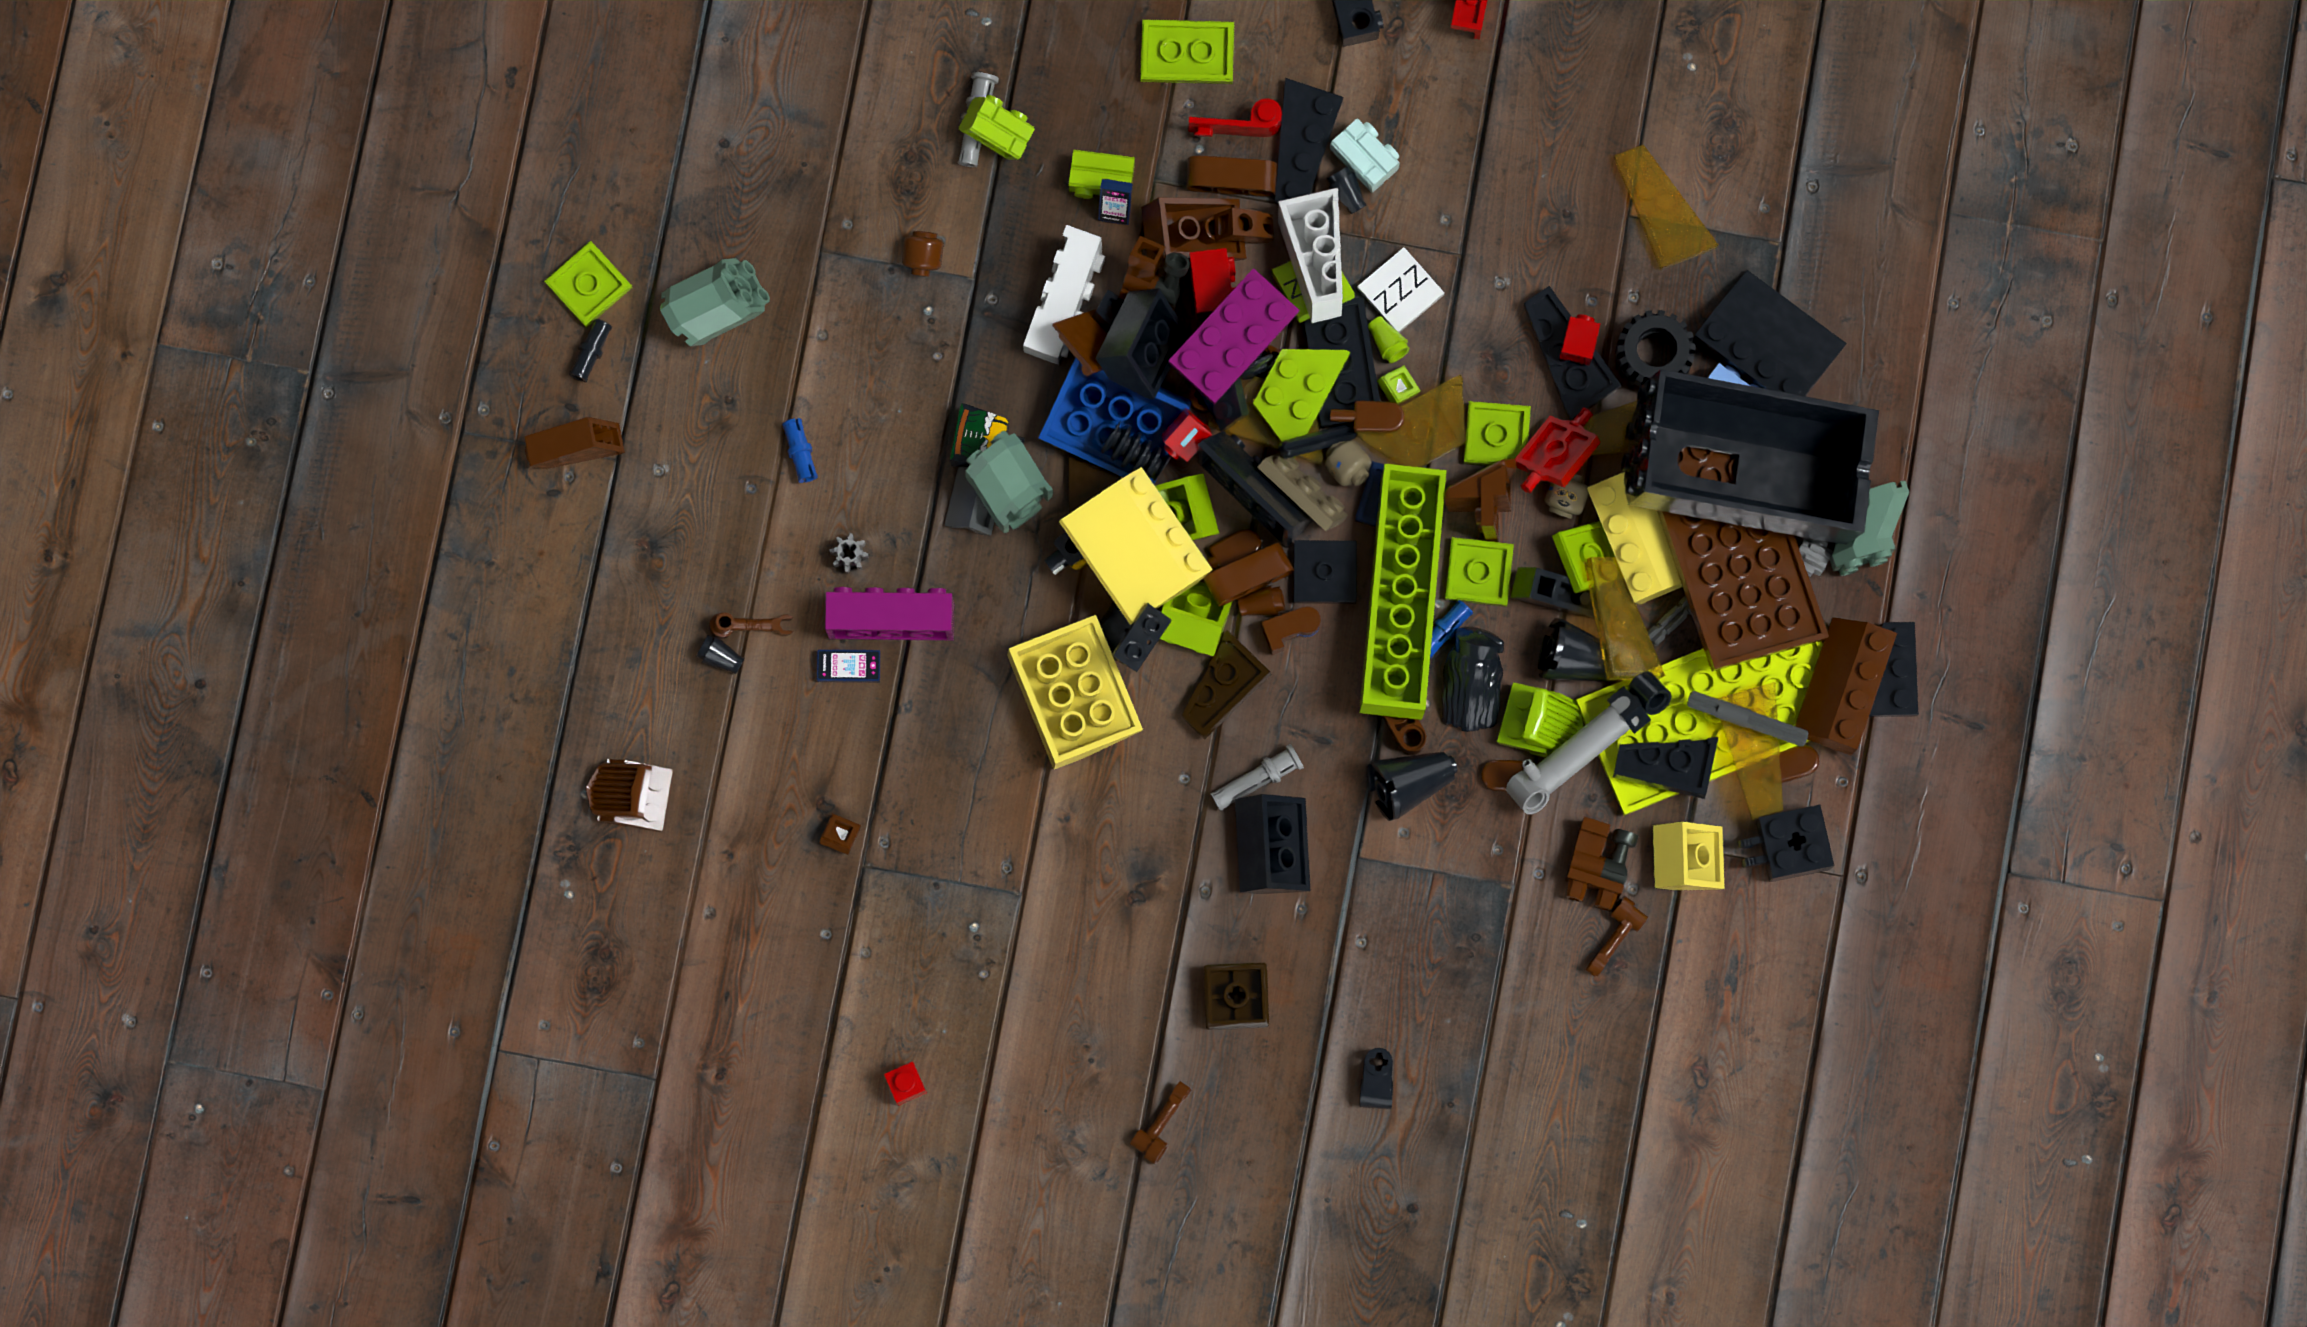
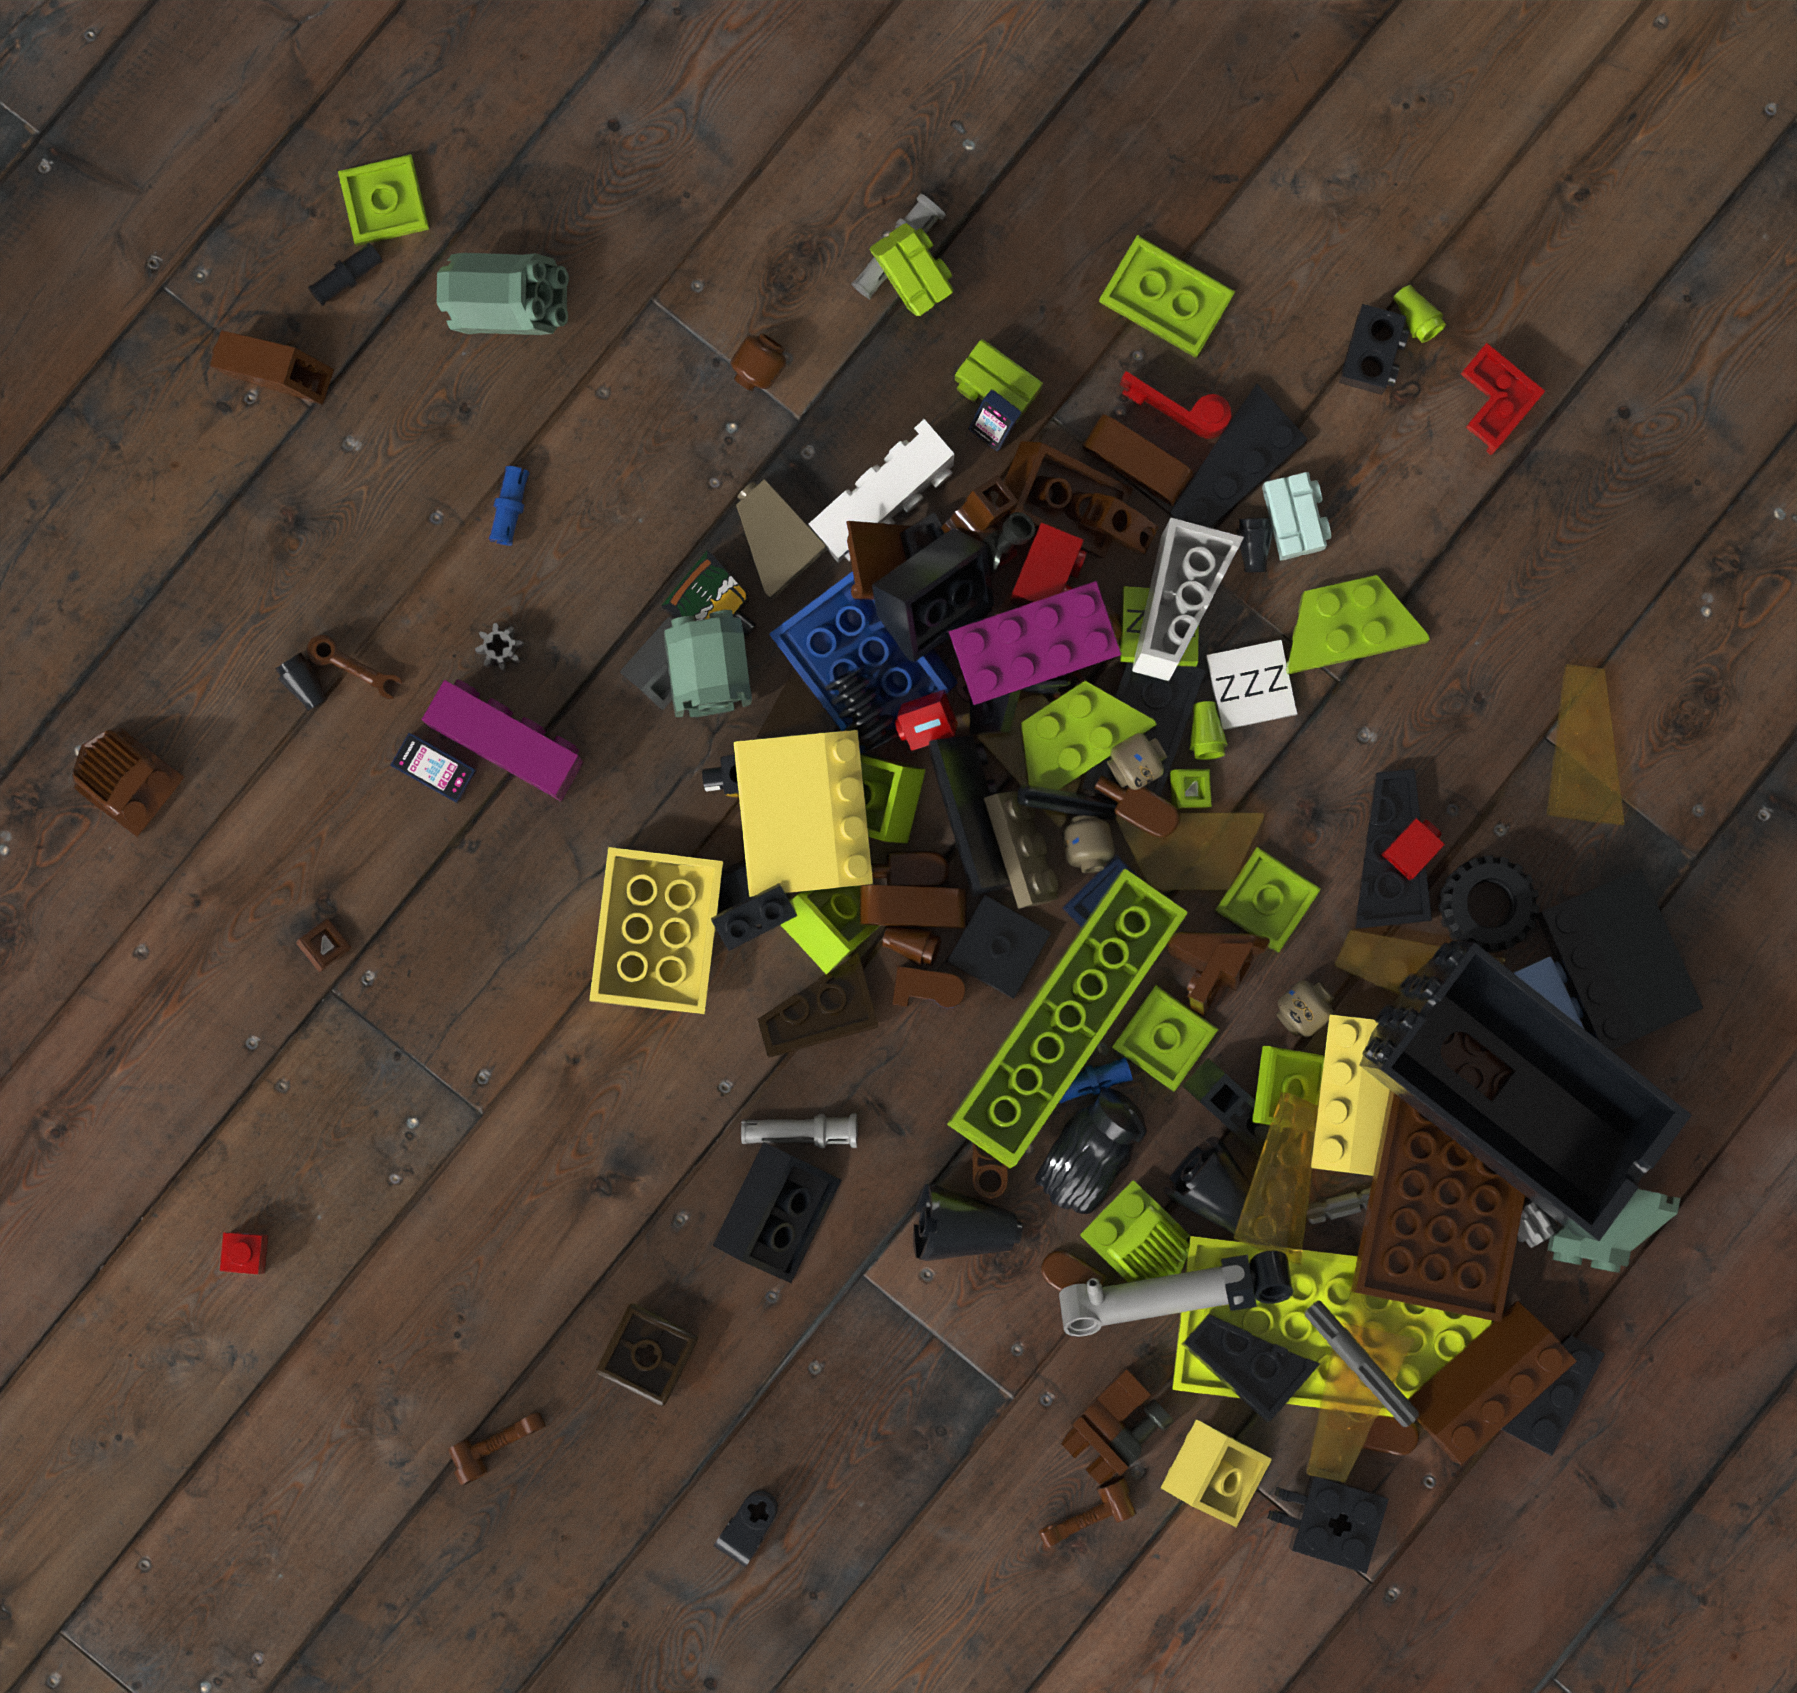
camera: 30 degrees right, 5 degrees up
(1004, 369) = (777, 538): none -> dark tan slope
(1350, 385) = (1137, 761): none -> dark tan head
(1447, 209) = (1350, 624): none -> lime wing
(1557, 451) = (1320, 956): red plate -> none

